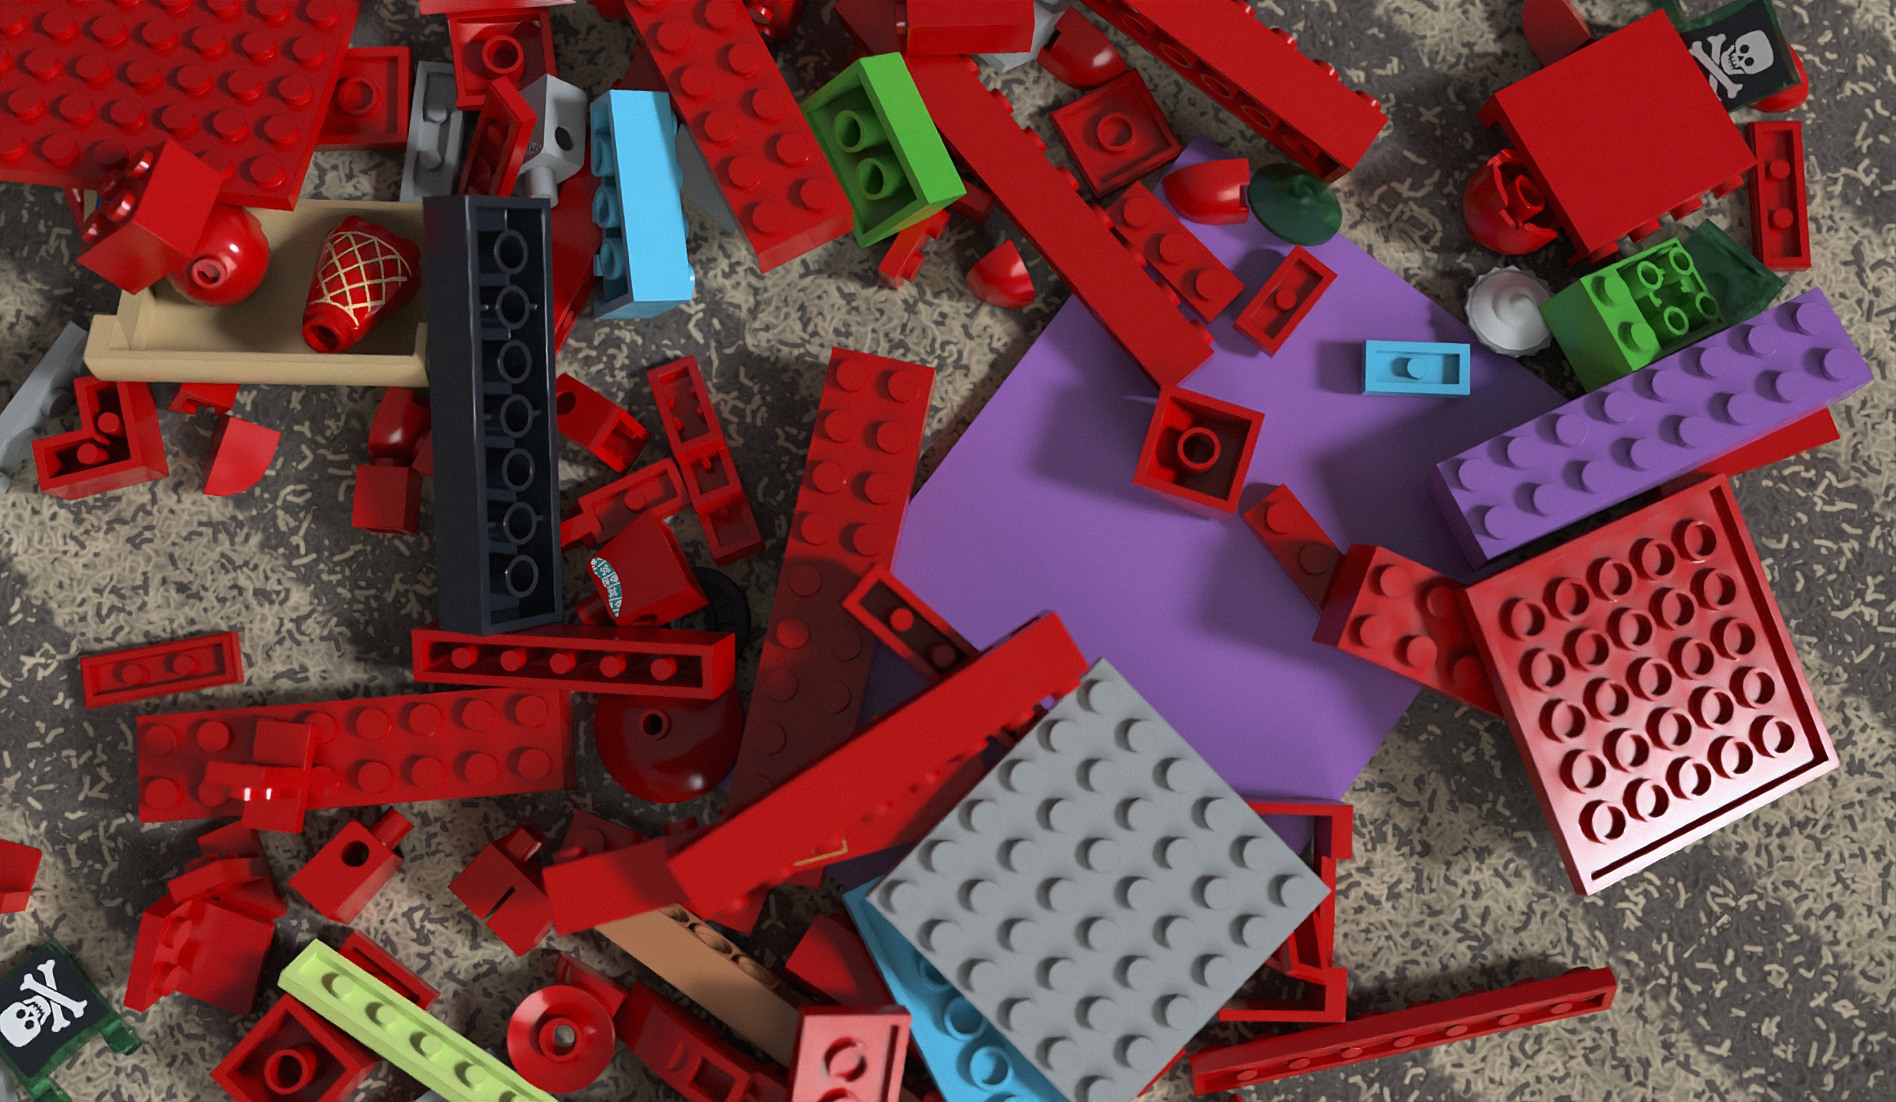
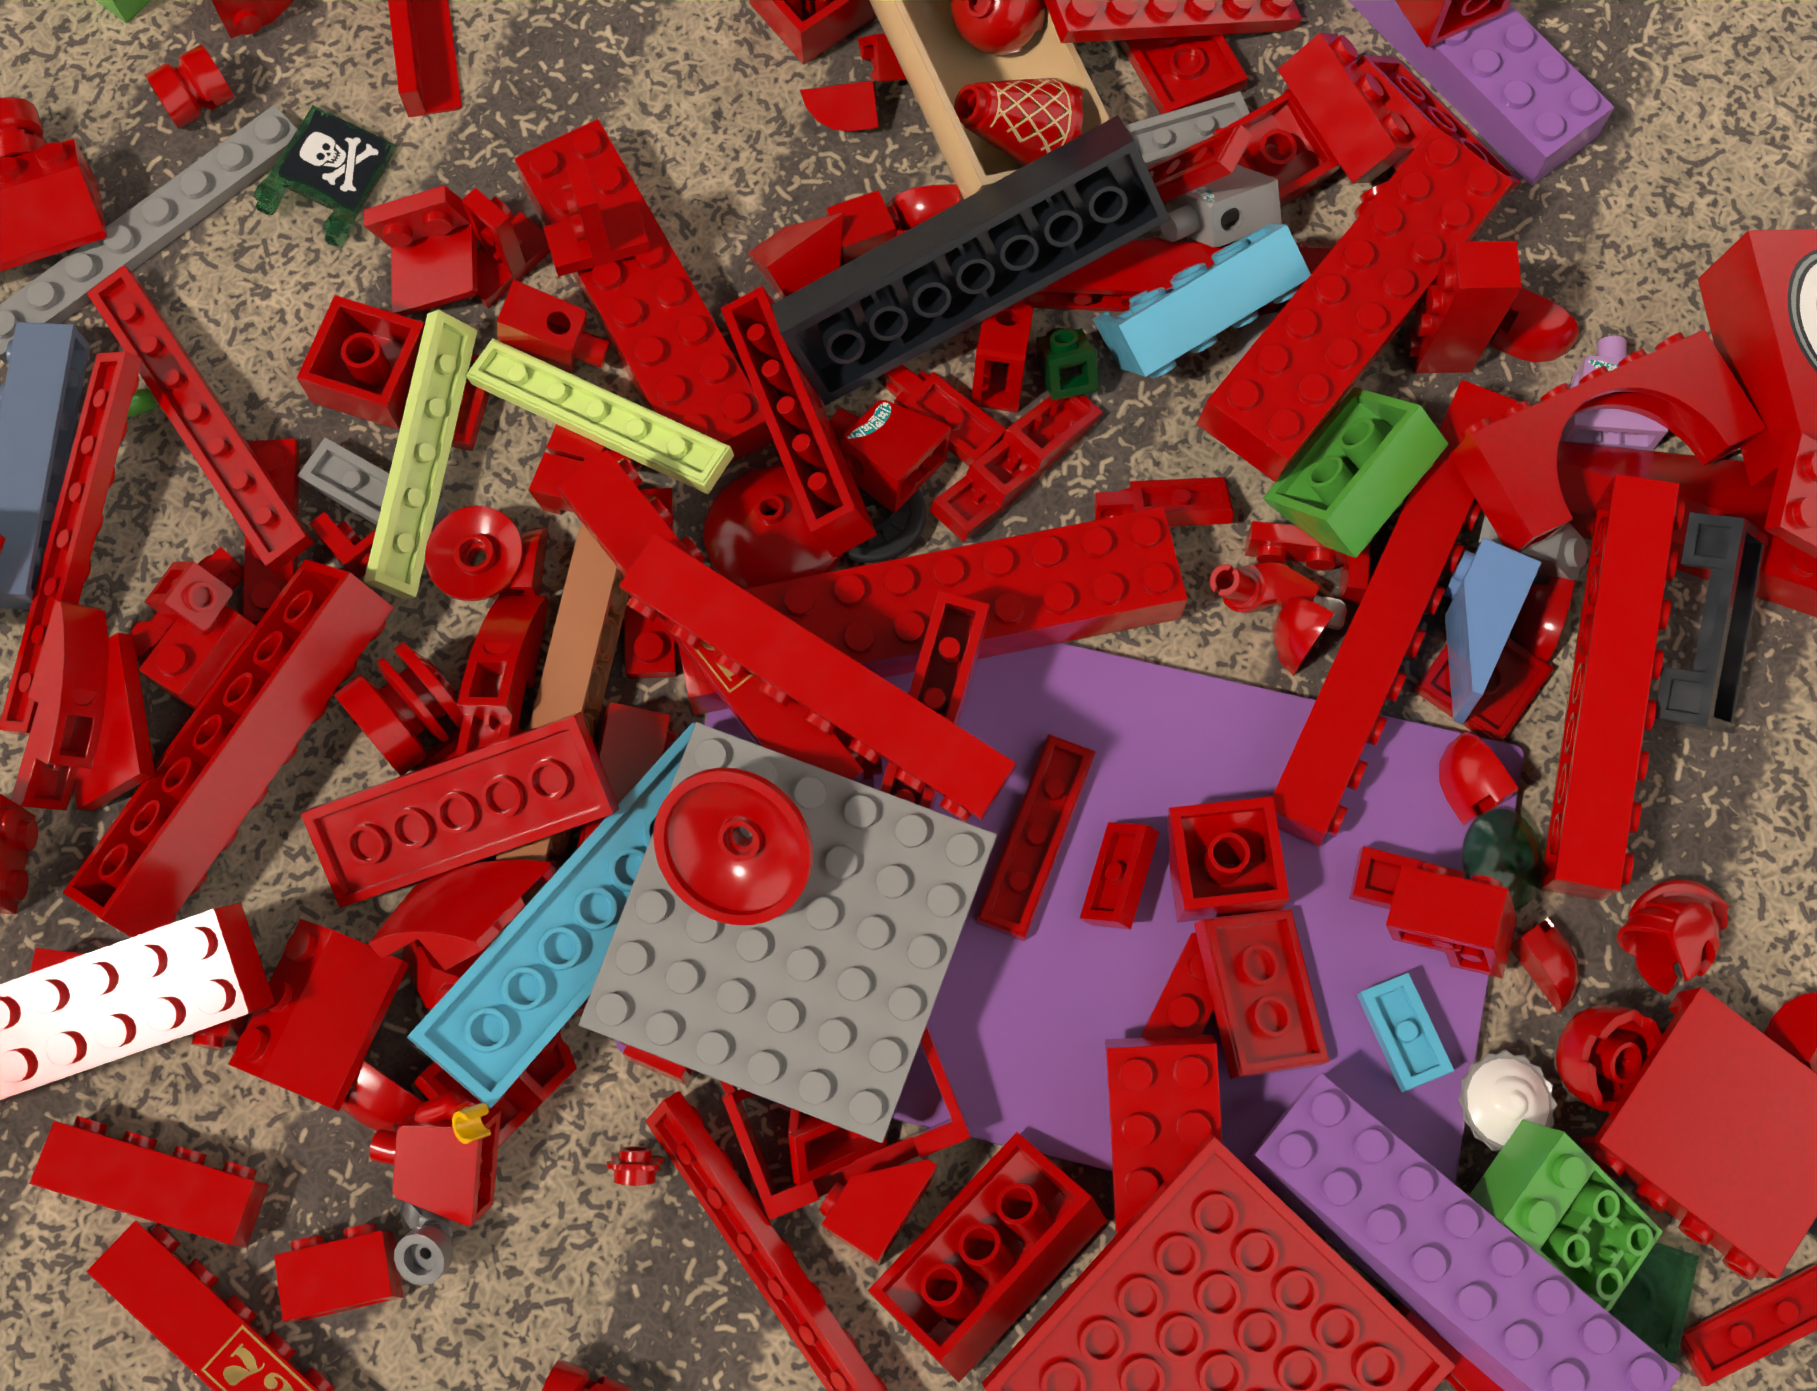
camera: 60 degrees right, 10 degrees down
(161, 670) = (644, 129): red tile -> none
(390, 573) = (800, 253): none -> red slope
(474, 853) = (601, 416): none -> yellowish green tile
(617, 362) = (1066, 350): none -> dark green brick
(817, 328) = (1184, 501): none -> red hinge
(939, 289) = (1267, 585): none -> red arm
(1018, 918) = (715, 864): none -> red dish
(1077, 110) = (1483, 608): none -> medium blue slope
(1088, 611) = (1035, 837): none -> red tile
(1163, 555) = (1119, 875): none -> red plate
(1174, 253) = (1399, 770): red plate -> none
(1328, 480) = (1261, 993): none -> red tile
(1339, 277) = (1454, 915): none -> red brick
(1376, 919) = (876, 1207): none -> red slope
(1397, 211) = (1549, 962): none -> red brick
(1417, 81) = (1672, 925): none -> red helmet
(1455, 837) = (988, 1255): none -> red slope

